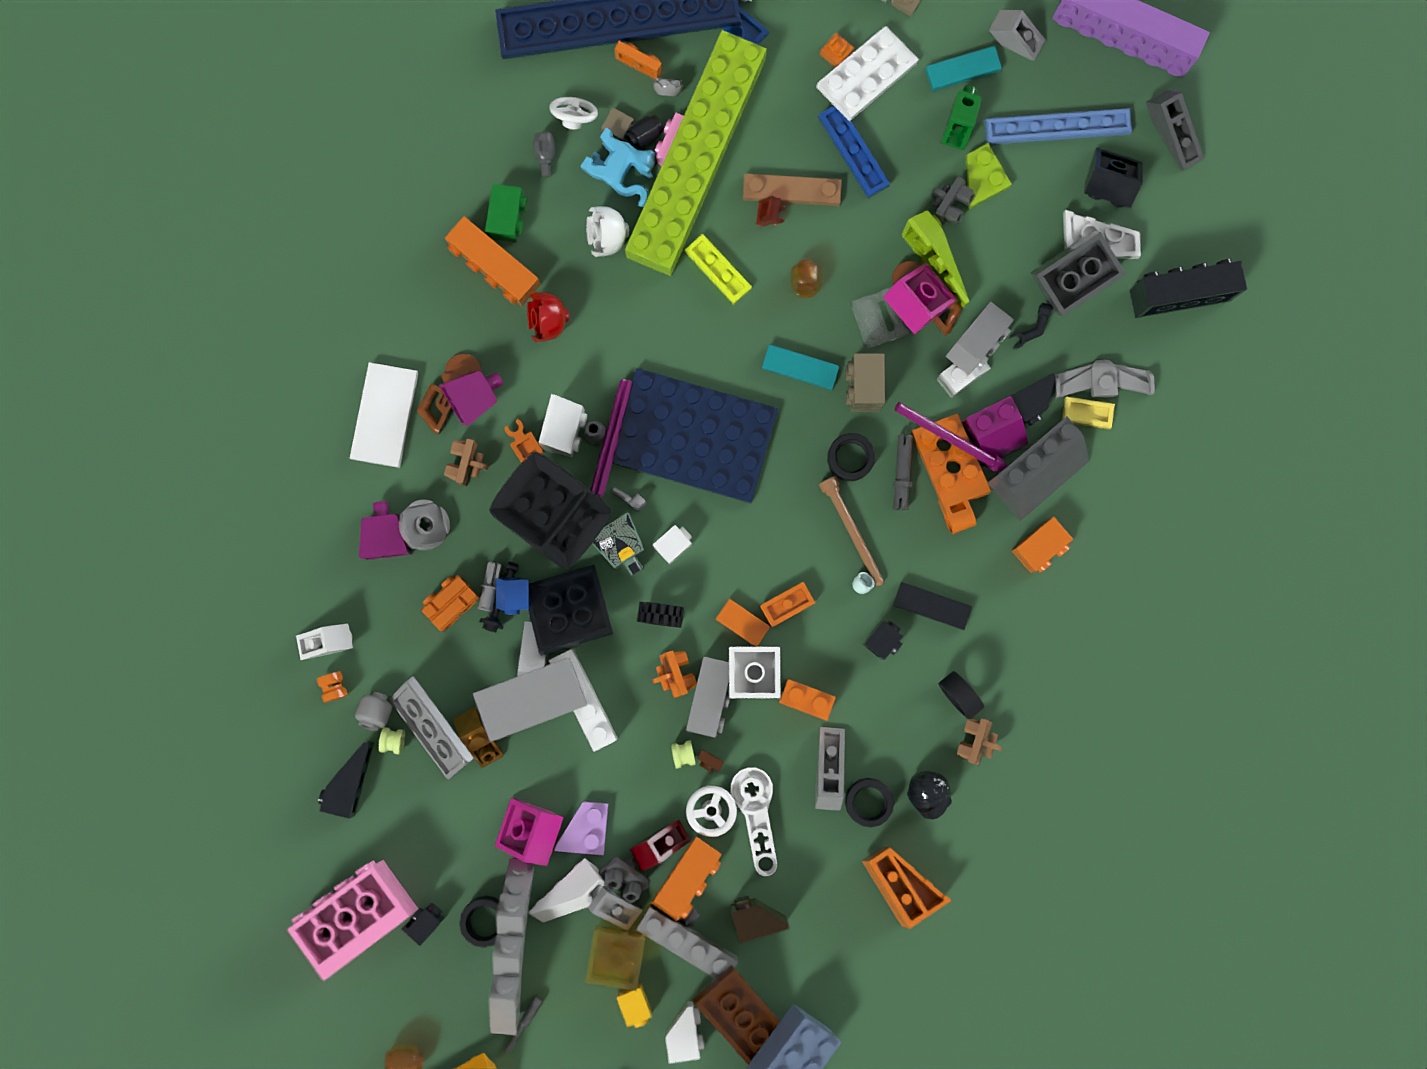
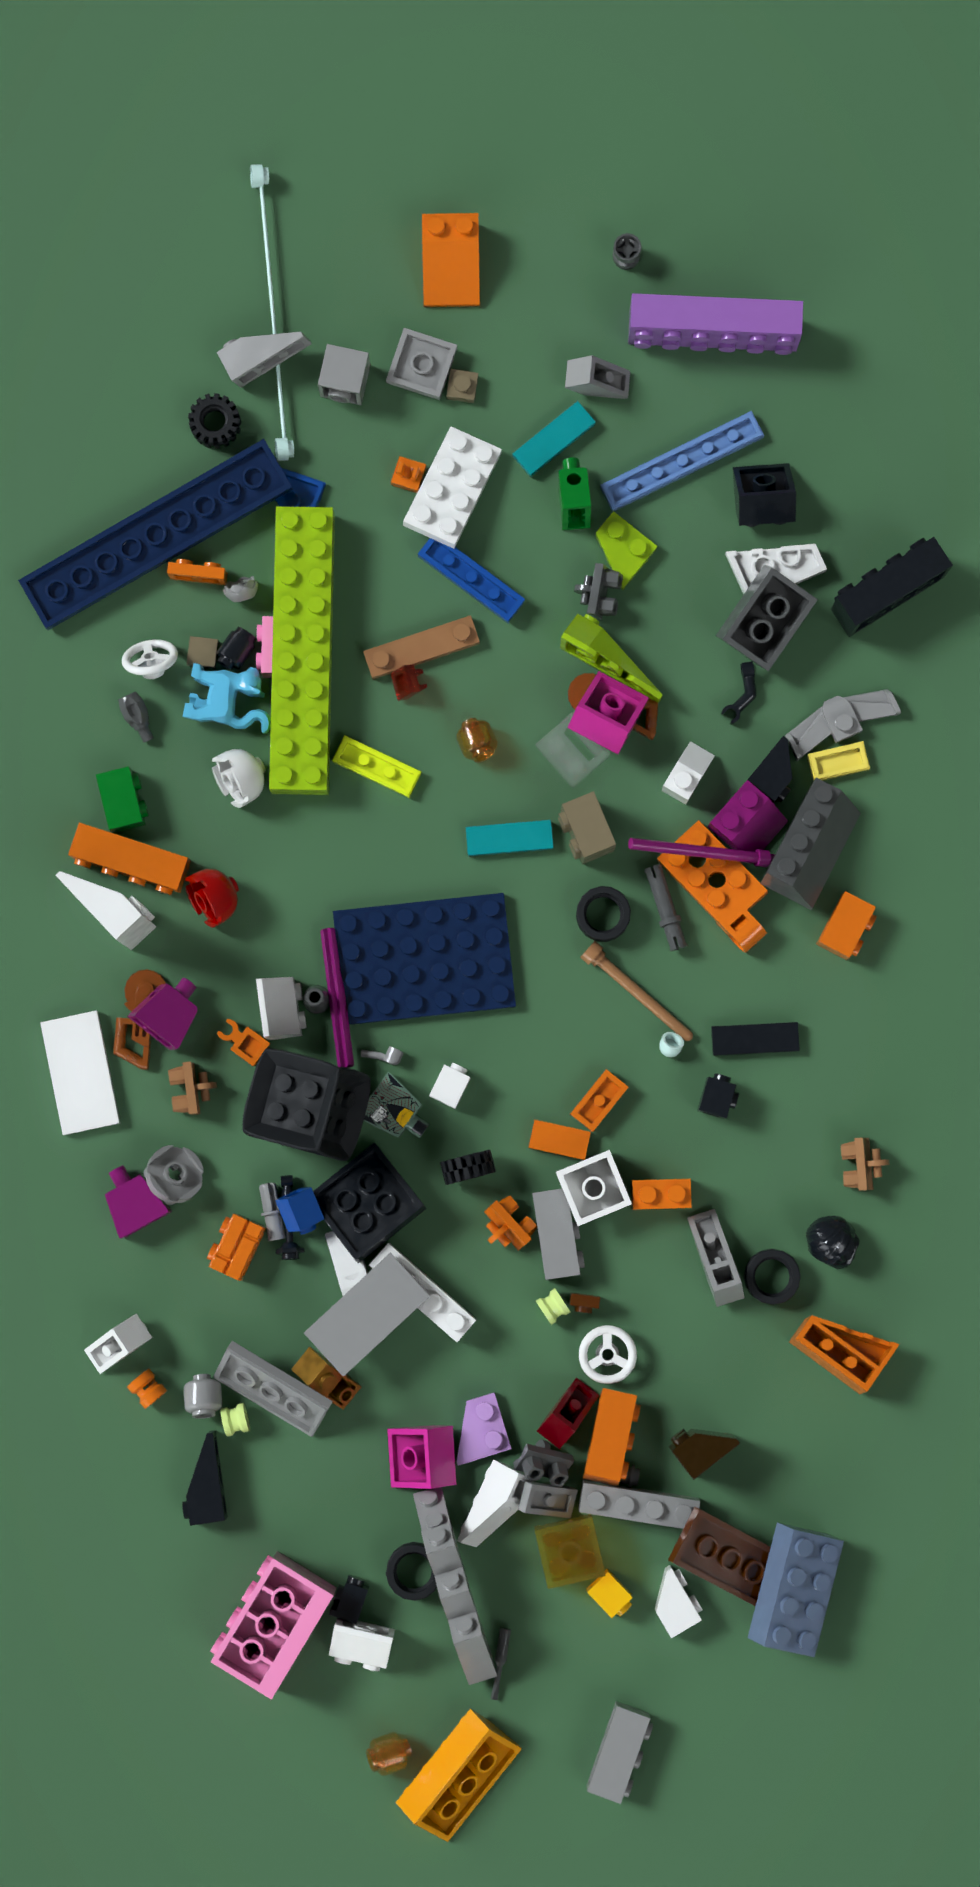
camera: 15 degrees left, 0 degrees up
(418, 963) = (361, 1643): none -> white slope
(462, 298) = (122, 917): none -> white slope
(756, 812) = (655, 1336): white beam -> none
(961, 695) = (823, 1122): black tyre -> none
(980, 339) = (691, 731): light grey brick -> none
(1175, 127) = (809, 413): dark grey slope -> none

